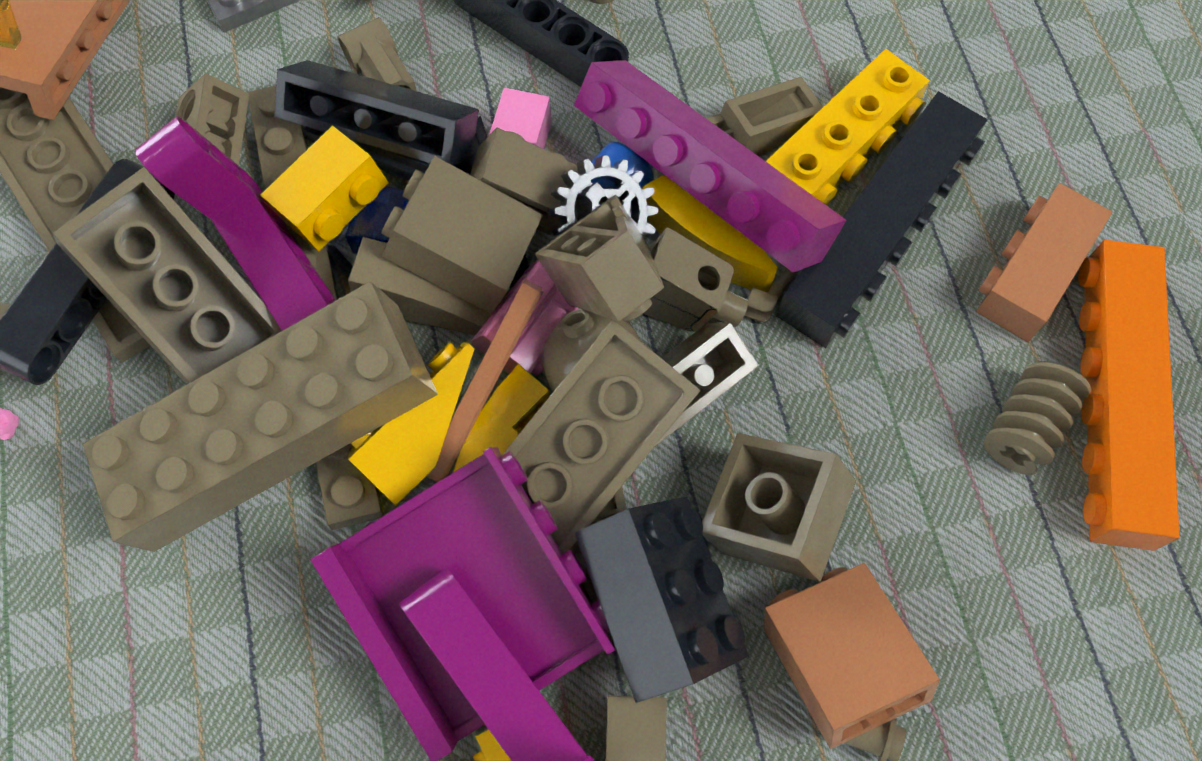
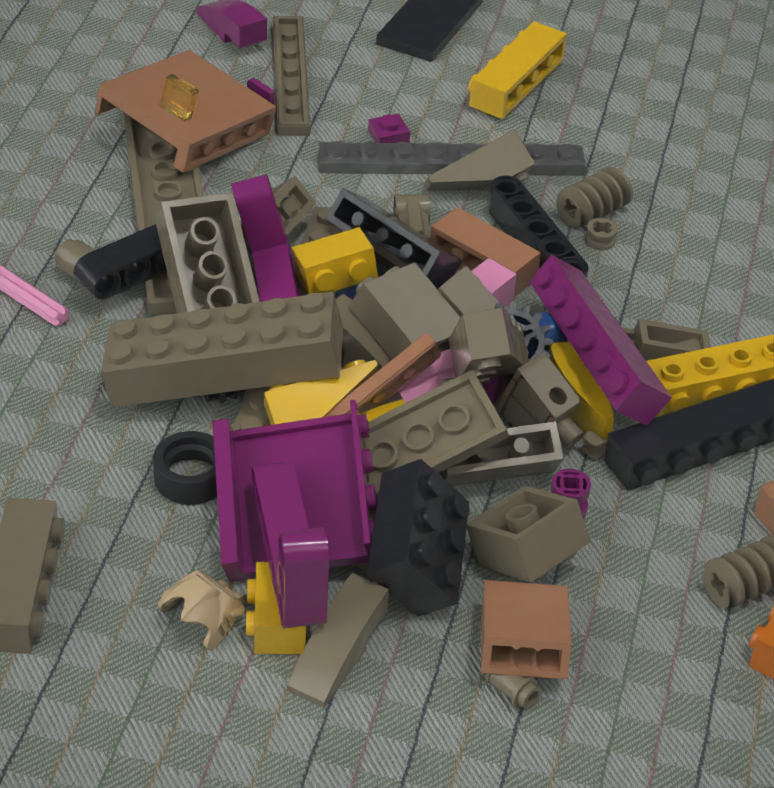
camera: 25 degrees right, 25 degrees down
(260, 597) = (184, 488): none -> black tyre
(478, 68) = (477, 241): none -> nougat brick
(774, 414) = (574, 485): none -> magenta wheel

